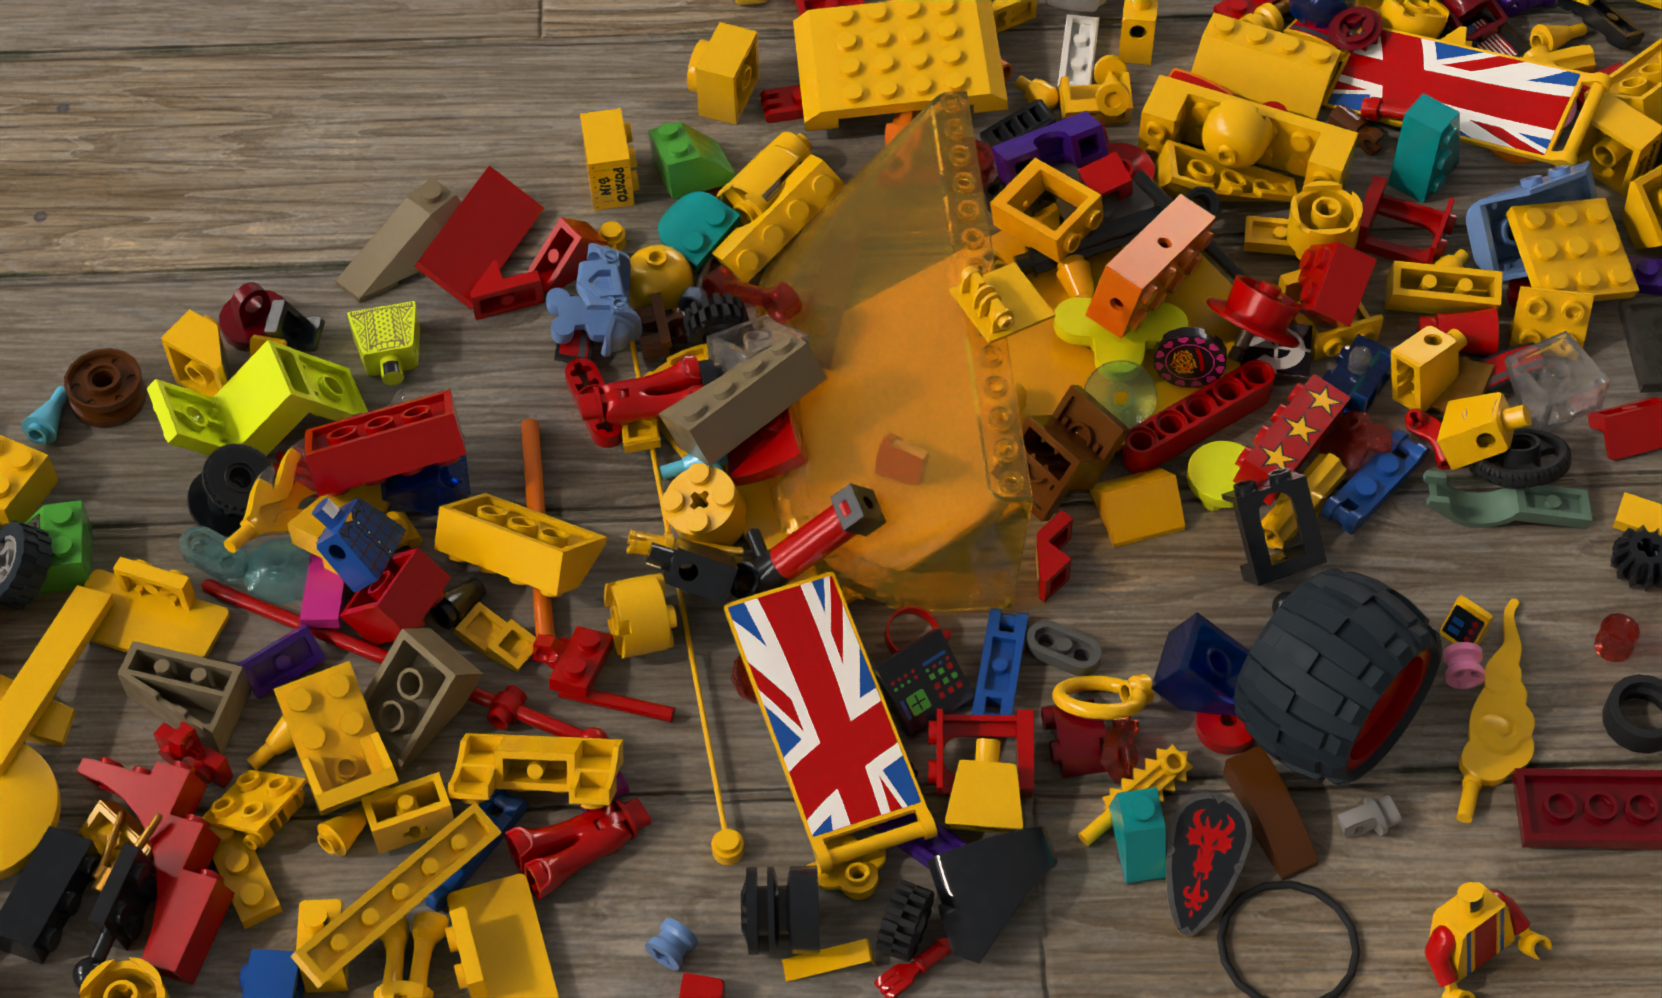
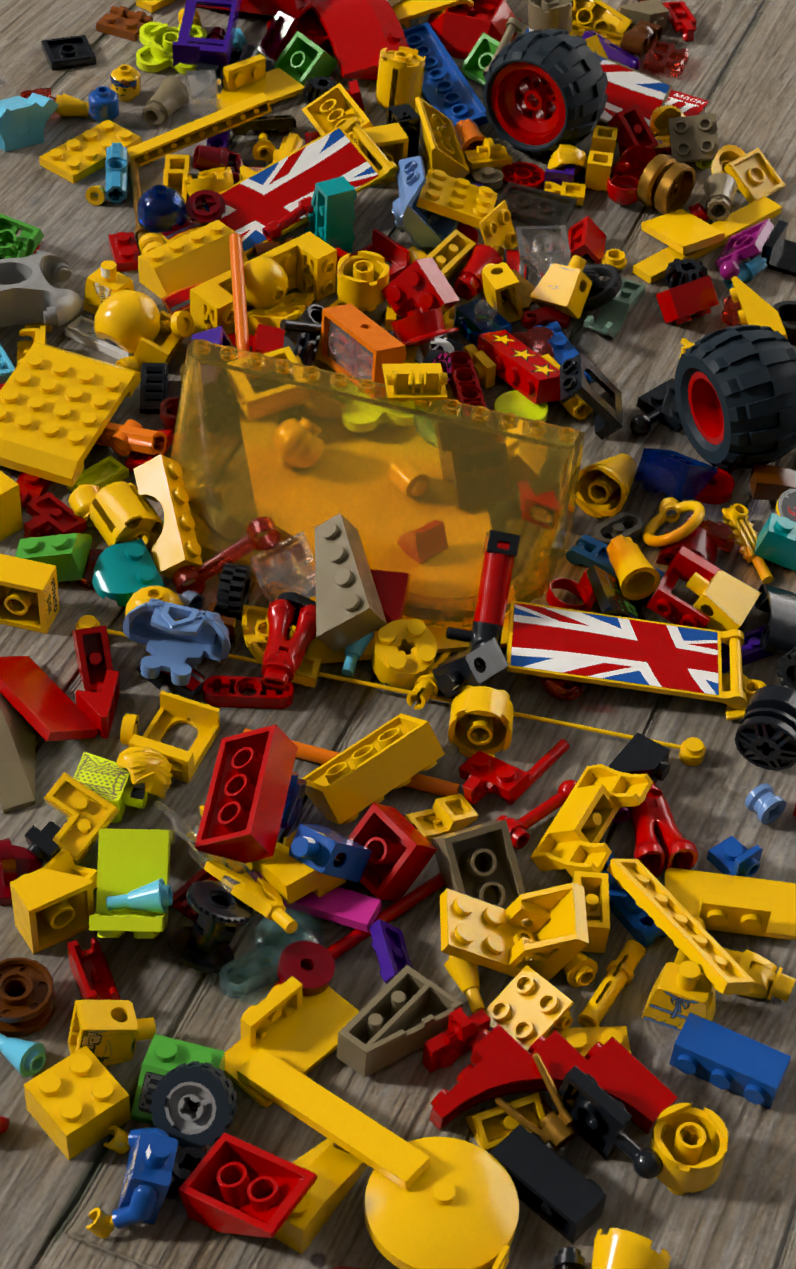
camera: 70 degrees left, 10 degrees down
(80, 465) = (108, 1029): none -> yellow torso
(140, 441) = (92, 972): none -> red hinge
(221, 577) = (309, 955): none -> dark red piece
(228, 424) = (150, 897): none -> cone
(339, 335) = (85, 812): none -> yellow tile
(349, 874) = (618, 975): none -> yellow pin
(417, 360) = (147, 767): none -> yellow hair
(480, 327) = (129, 727): none -> yellow tile
(517, 351) = (178, 710): none -> yellow panel
(575, 940) = (734, 858): none -> blue bracket
(665, 791) = (643, 757): none -> black slope
(749, 137) = (51, 517): none -> red hinge
(844, 147) = (102, 473): none -> neon yellow tile
(973, 673) = (634, 572): none -> yellow plant
(1092, 51) = (127, 318): none -> yellow cylinder
(1135, 604) = (606, 485): none -> yellow cone
(1176, 116) = (239, 292): none -> orange piece
(1270, 402) = (483, 365): none -> yellow plate
(1581, 573) = (687, 299): none -> red brick
(1592, 663) = (754, 308): none -> yellow slope
(1622, 468) = (615, 258): none -> yellow plate

